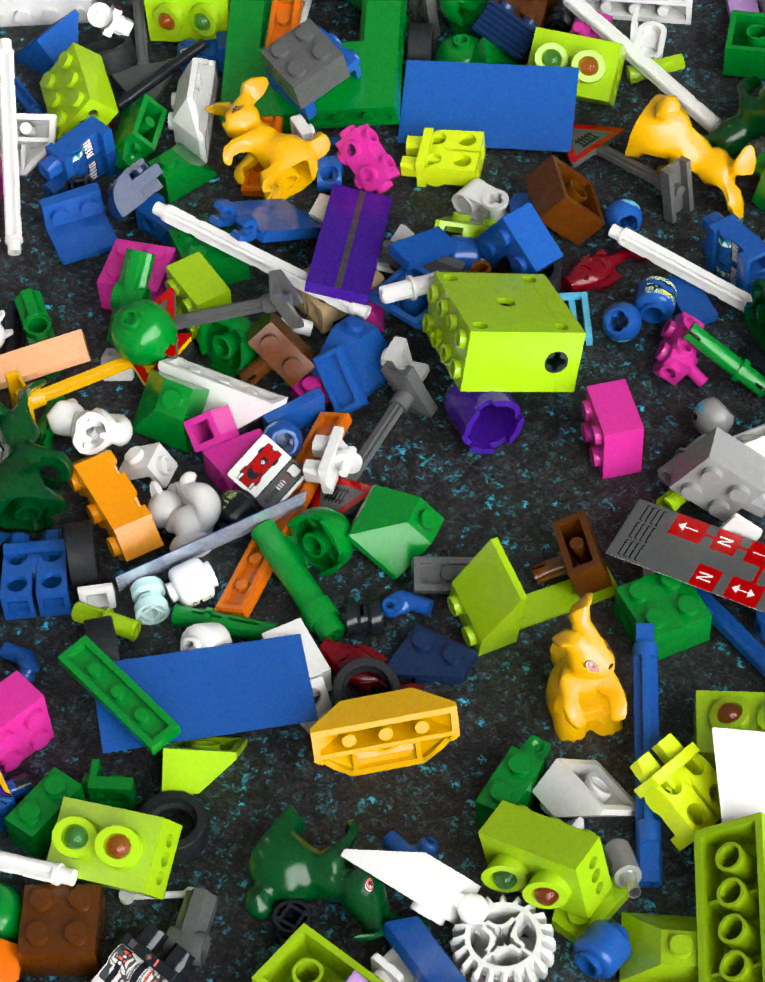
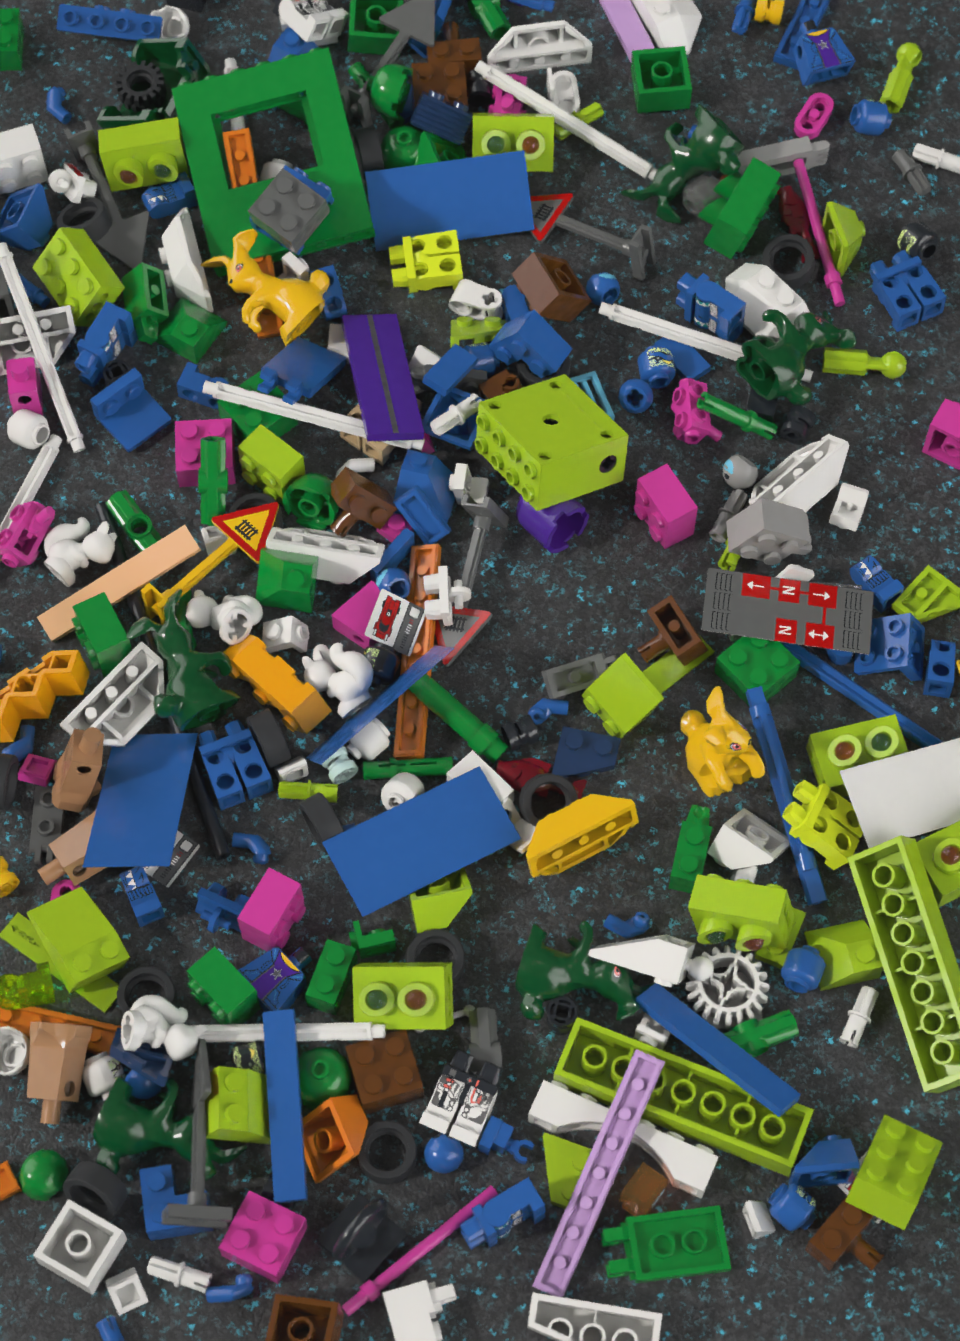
camera: 20 degrees left, 15 degrees up
(119, 695) = (359, 865): green plate -> none
(132, 188) = (165, 366): brick -> none
(142, 332) = (242, 516): green cylinder -> none
(161, 74) = (144, 233): black bar -> none
(211, 428) = (332, 592): dark pink brick -> none
(280, 299) = (250, 506): dark grey piece -> none
(320, 539) = (463, 672): green cylinder -> none
(367, 159) = (364, 283): dark pink brick -> none
(393, 528) = (518, 647): green slope -> none
(597, 271) = (594, 348): dark red animal -> none
(623, 866) = (799, 896): light grey piece -> none
(667, 133) = (621, 202): yellow animal -> none

